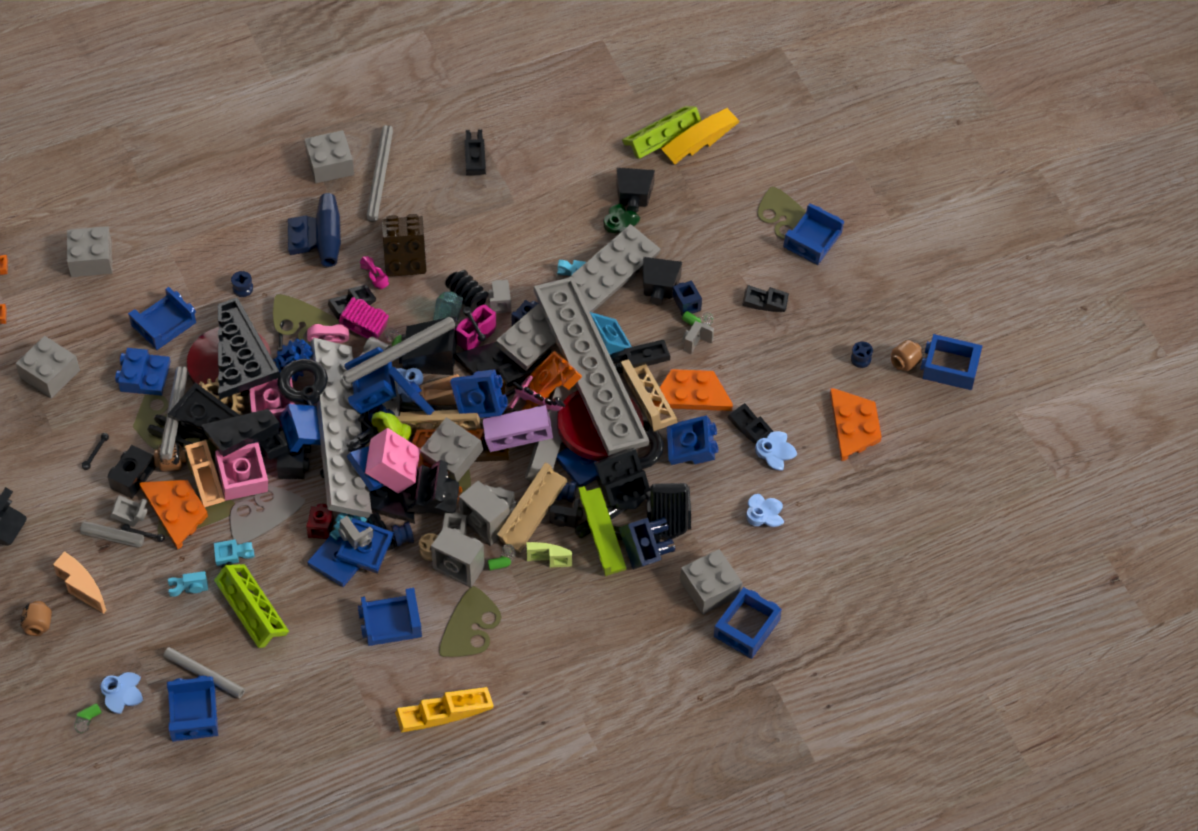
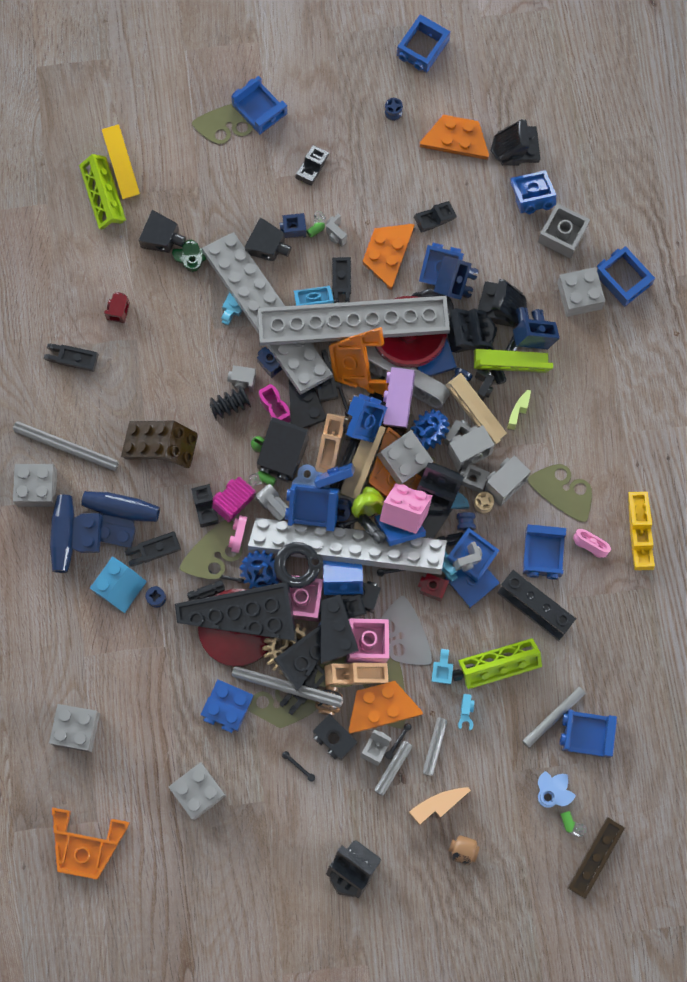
camera: 70 degrees left, 20 degrees up
(53, 748) = (596, 858): none -> dark brown plate
(143, 566) = (434, 747): none -> light grey axle
(164, 319) = (172, 675): blue panel -> none
(246, 248) = (118, 584): none -> dark azure slope
(260, 325) = (206, 591): none -> black axle
(287, 197) = (71, 533): none -> dark blue plate
(293, 270) = (154, 548): none -> black hinge
(321, 614) = (536, 605): none -> black fence
(381, 280) = (189, 476): dark pink piece -> none
(398, 350) = (297, 473): light grey axle -> none
(414, 664) = (591, 543): none -> bright pink plate
(426, 523) = (460, 502): none -> dark azure tile
(448, 305) = (246, 424): clear light blue brick -> none
(467, 312) = (263, 406): black hinge -> none
(495, 472) = (430, 429): none -> blue gear
(504, 560) = (510, 445): arm -> none
(527, 394) = (360, 383): bright pink piece -> none
(540, 174) = (117, 307): none -> dark red brick
(645, 399) = (388, 289): tan fence -> none
(674, 445) = (453, 278): none -> dark blue brick
(764, 511) = (520, 230): light blue plate -> none
(777, 545) = (563, 231): none -> light grey brick
(778, 450) = (466, 205): light blue plate -> none
(815, 508) = (533, 192): none -> blue plate
(867, 480) = (516, 144): none -> black piece
(906, 355) = (408, 75): medium nougat head -> none

